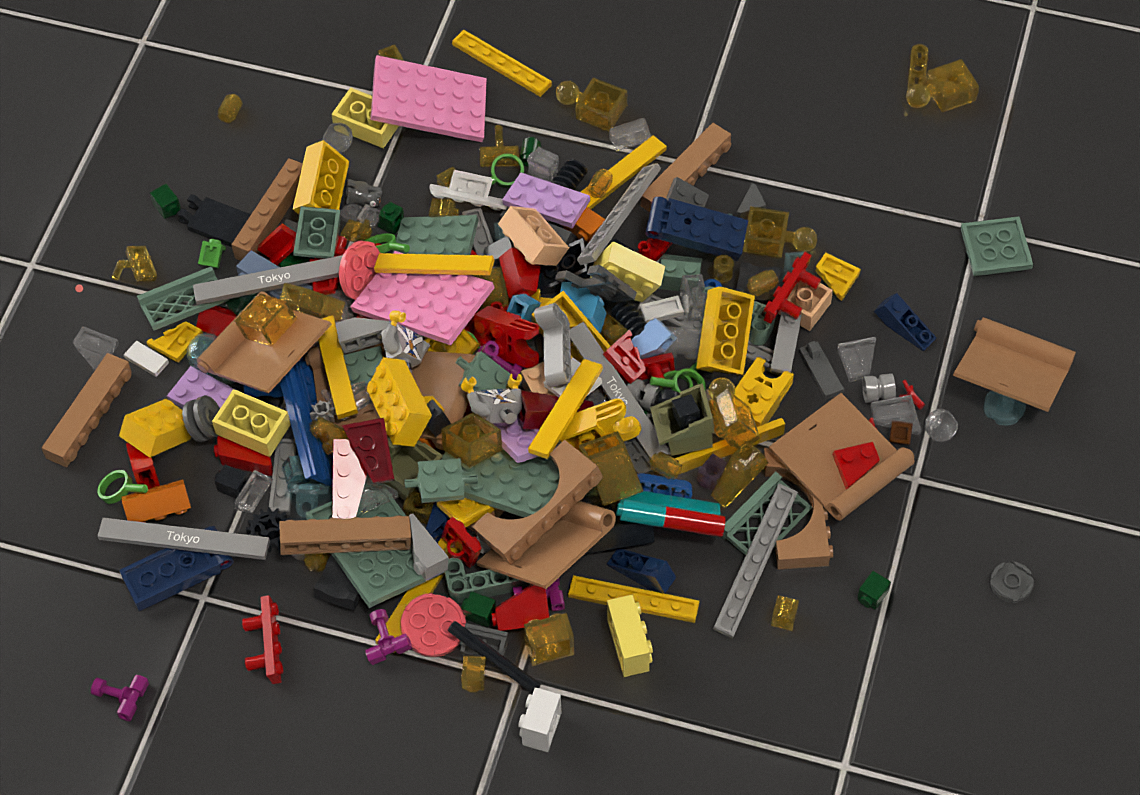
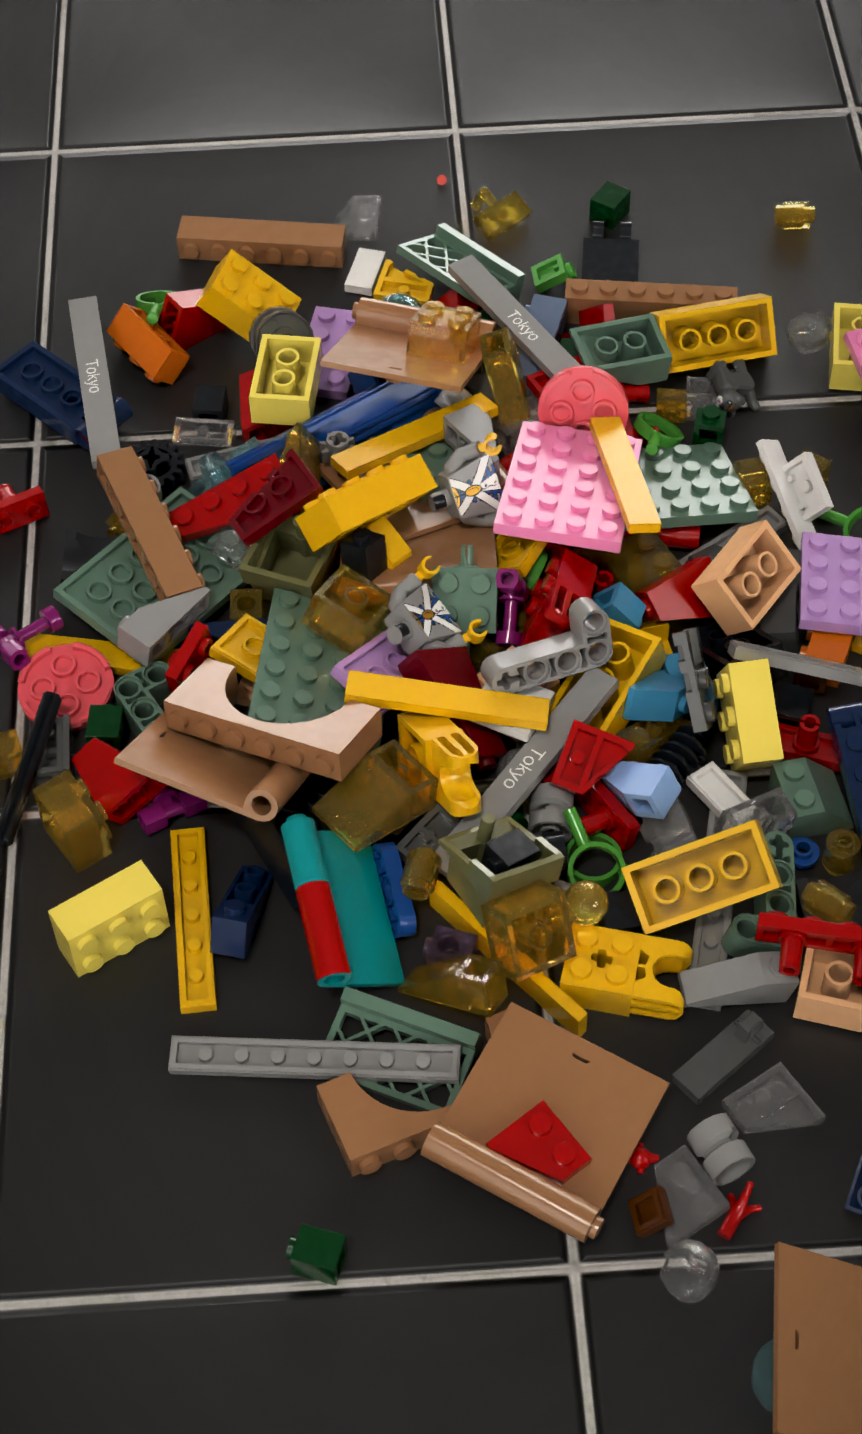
camera: 70 degrees right, 5 degrees down
(441, 480) = (264, 595): sand green plate -> none
(785, 613) = (228, 1128): clear yellow brick -> none

